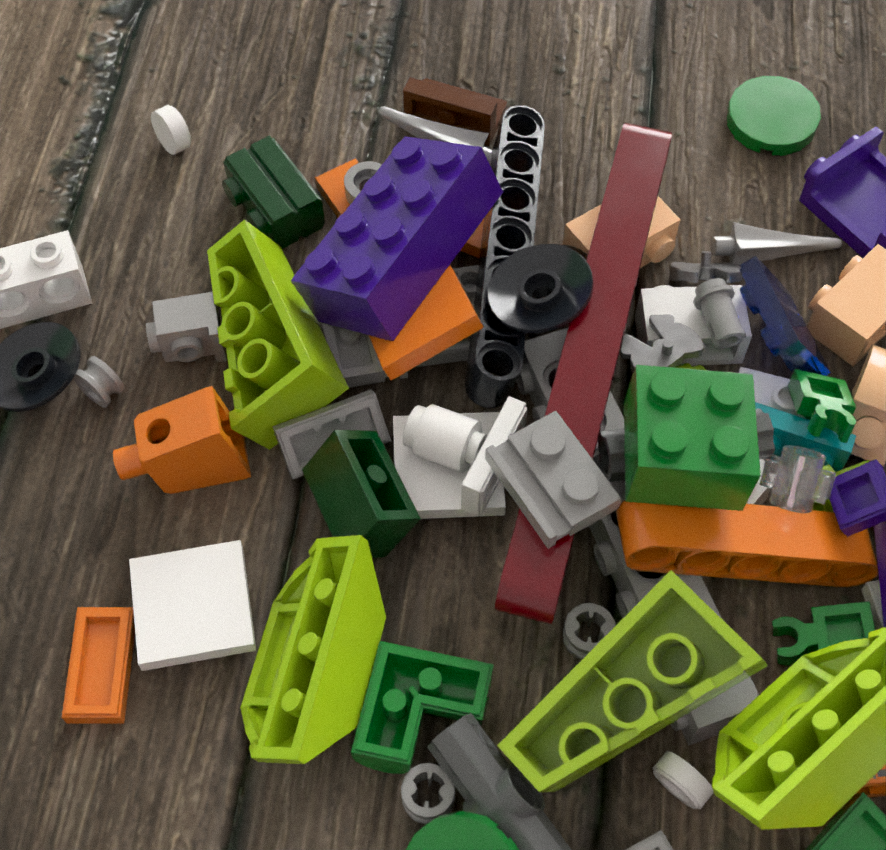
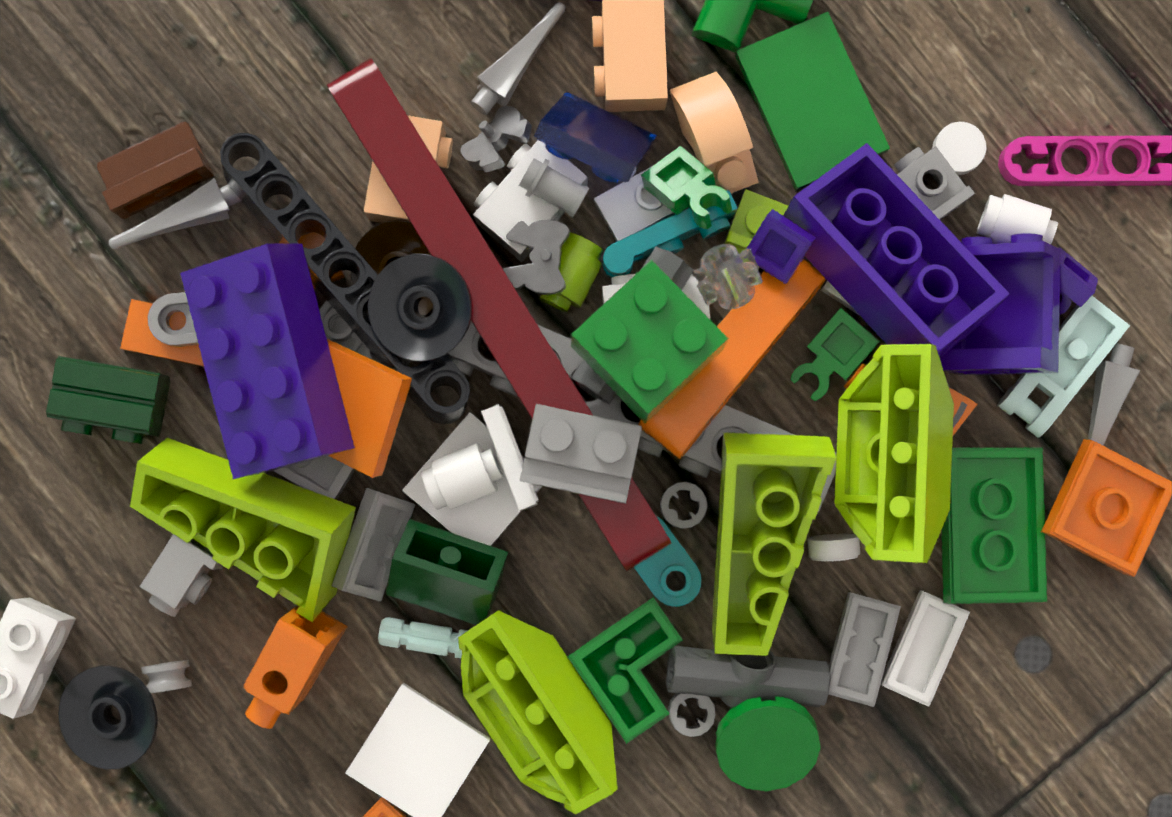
camera: 50 degrees left, 25 degrees up
(287, 524) = (419, 637): none -> light aqua axle
(526, 651) = (657, 567): none -> teal plate

